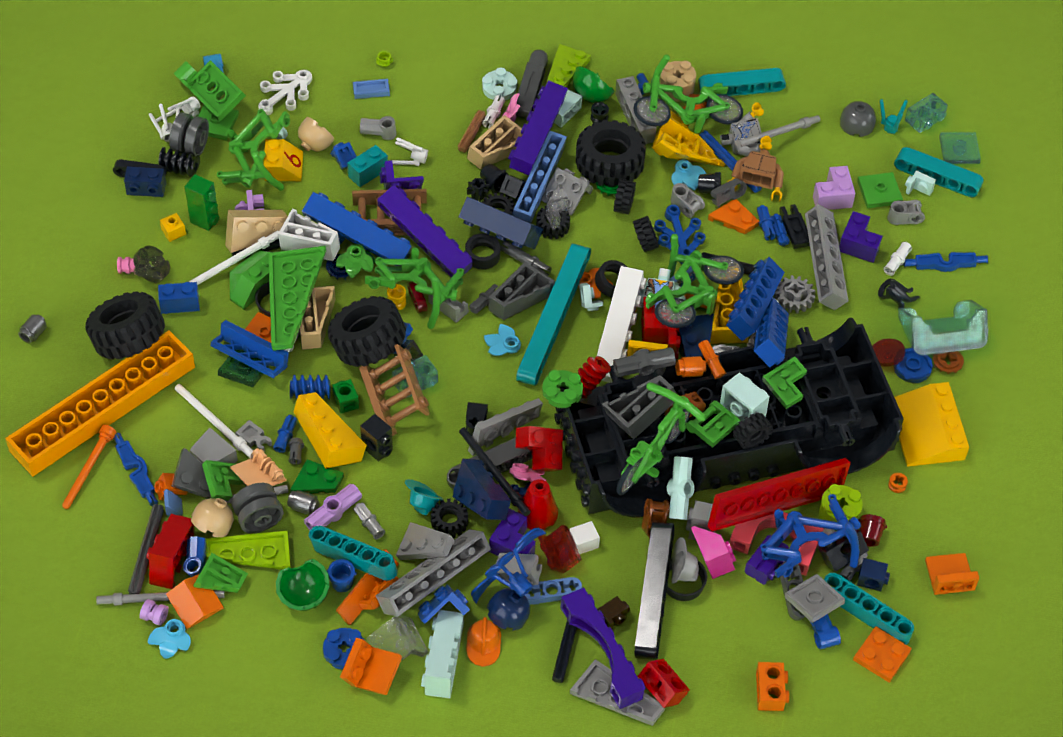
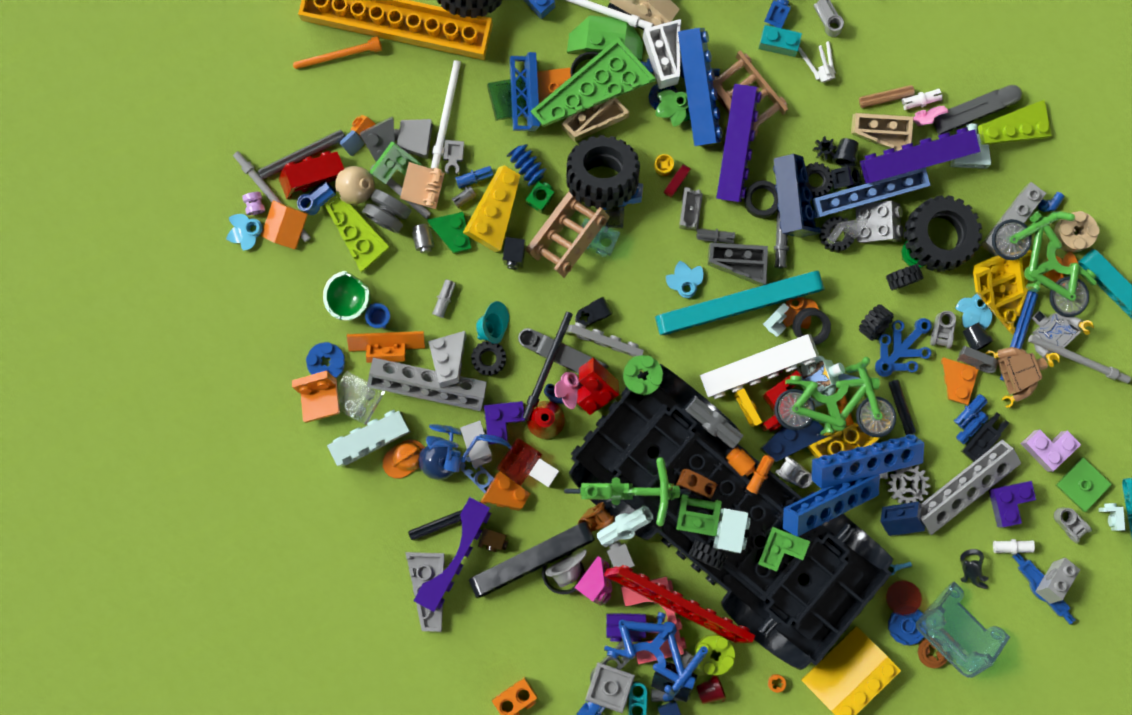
camera: 60 degrees right, 30 degrees up
(139, 476) = (358, 98): blue piece -> none
(220, 575) = (314, 227): bright green wing -> none
(341, 501) = (420, 263): lavender piece -> none
(358, 553) = (396, 304): teal beam -> none
(387, 178) = (772, 80): dark purple bracket -> none
(416, 268) = (702, 163): bright green piece -> none
(442, 596) = (410, 409): blue bracket -> none
(479, 491) = (516, 370): dark blue wedge -> none
(499, 76) = (966, 75): light aqua plate -> none
(579, 574) = (505, 493): none -> orange wing
(591, 86) = (1003, 166): green cylinder -> none
(593, 373) = (678, 384): red piece -> none
(599, 112) = (986, 187): black wheel -> none
(638, 408) = (653, 444): dark grey wedge -> none
(663, 683) = (456, 618): red brick -> none
(821, 311) = (902, 519): none -> dark blue panel
(946, 242) = (1057, 580): none -> light grey brick

